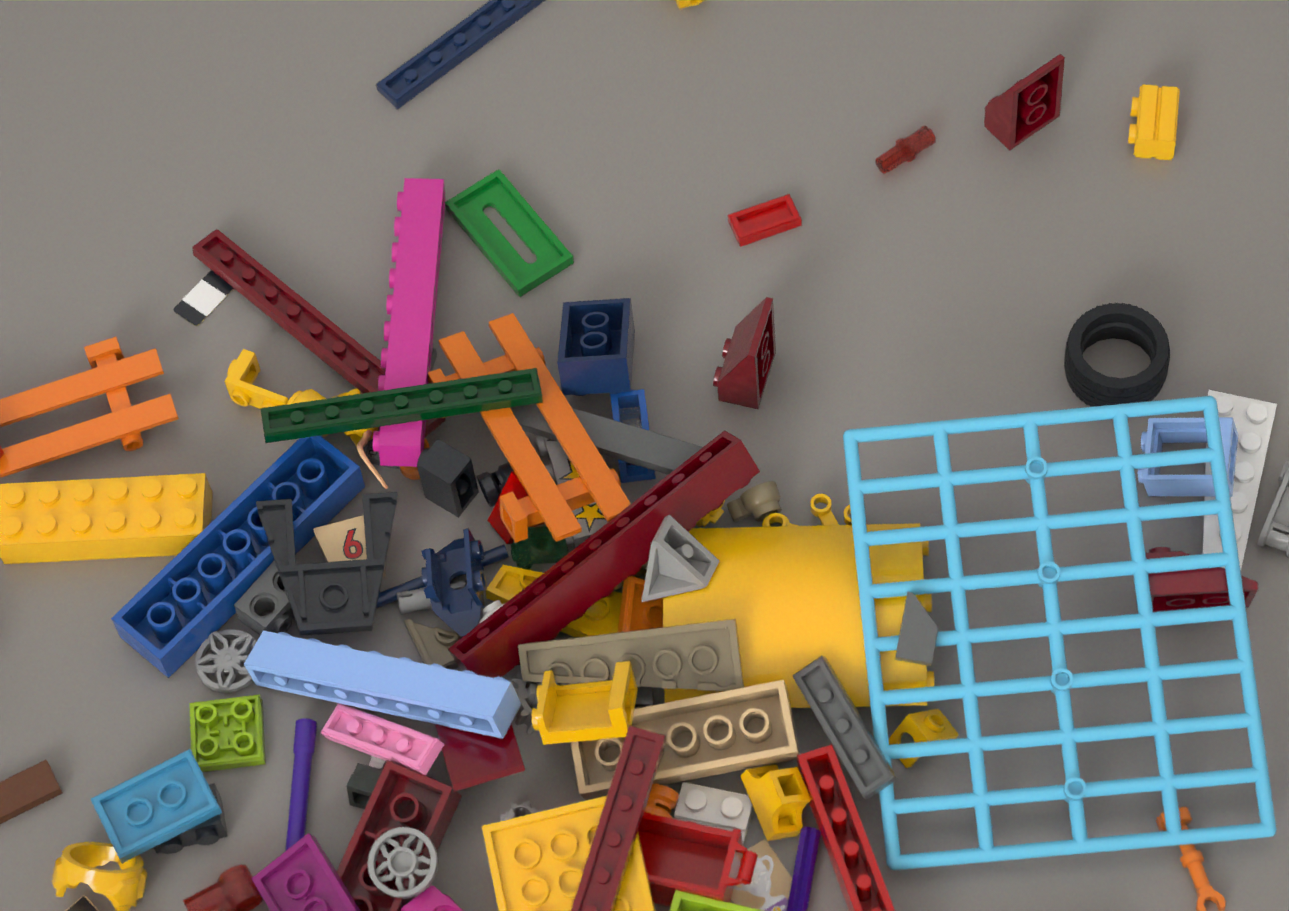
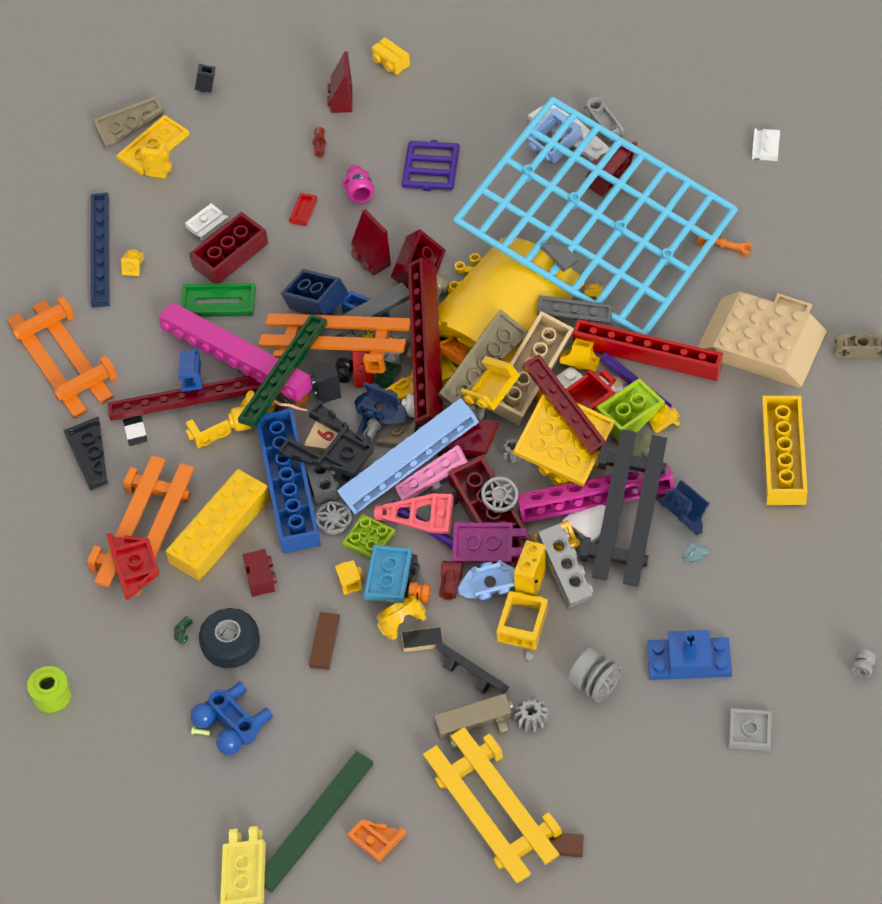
camera: 55 degrees left, 5 degrees down
(59, 630) = (258, 572): none -> dark red brick
(121, 265) = (88, 450): none -> black wing
(130, 753) = (349, 577): none -> yellow brick
(168, 871) = (421, 592): none -> orange wheel
(262, 173) = (88, 376): none -> orange fence
(320, 800) = (440, 513): none -> coral plate
(341, 286) = (190, 370): none -> blue window
(488, 76) = (131, 262): none -> yellow bracket
(601, 178) = (228, 248): none -> dark red brick
(635, 116) = (206, 222): none -> white plate
(676, 563) = (453, 316): light grey slope -> none
(789, 439) = (414, 247): none -> dark red slope
(862, 256) = (358, 184): none -> dark pink piece
(1001, 365) = (434, 144): none -> dark purple bar
(1124, 323) = (487, 147): black tyre -> none

